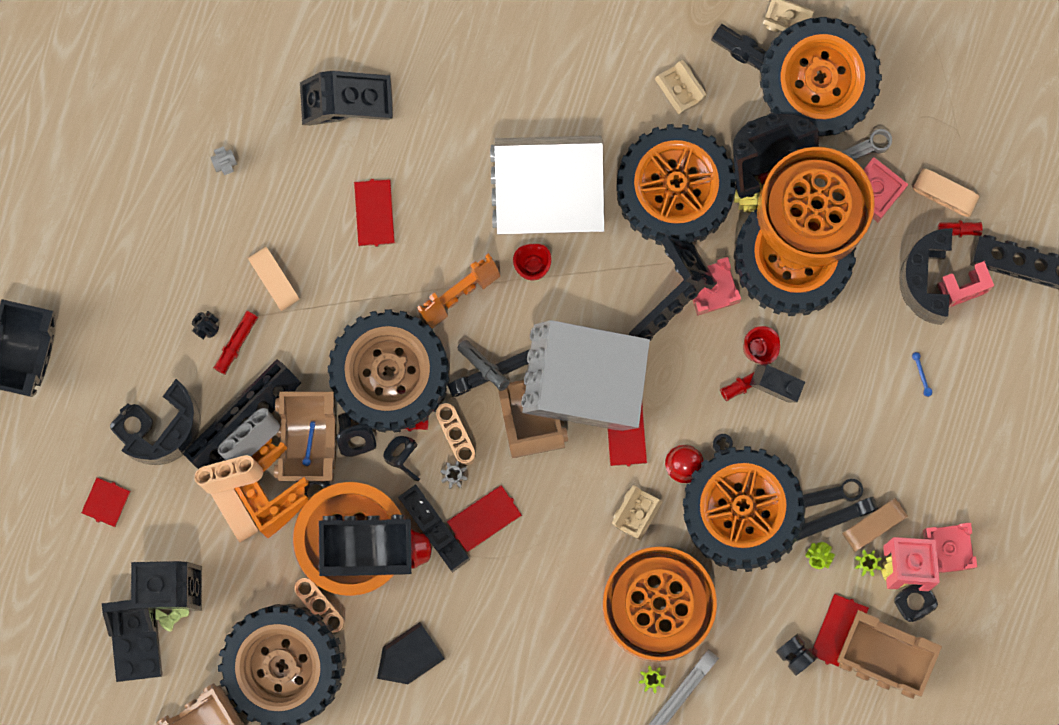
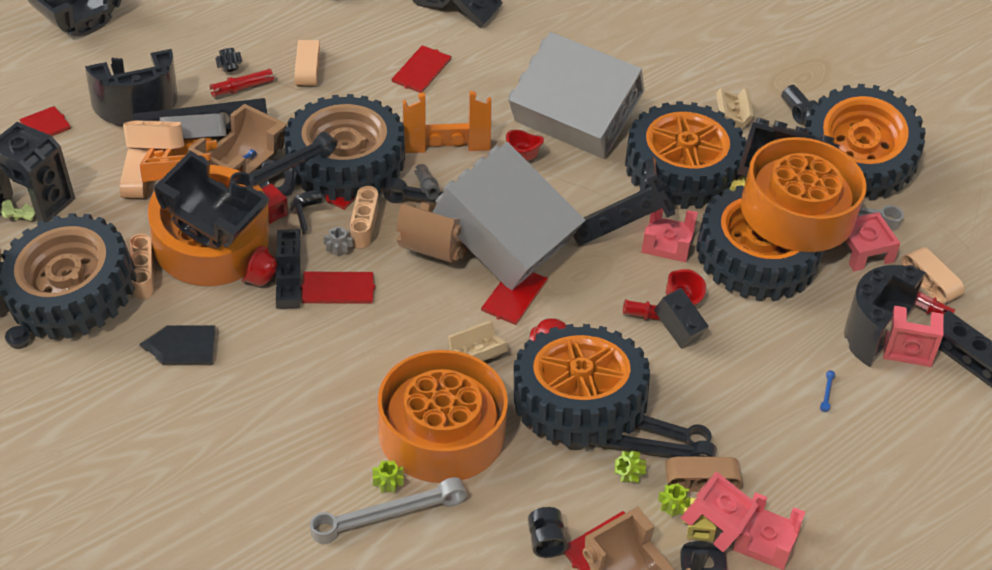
camera: 25 degrees right, 35 degrees down
(369, 471) = (277, 203): none -> red panel
(380, 458) = (322, 145): none -> black piece

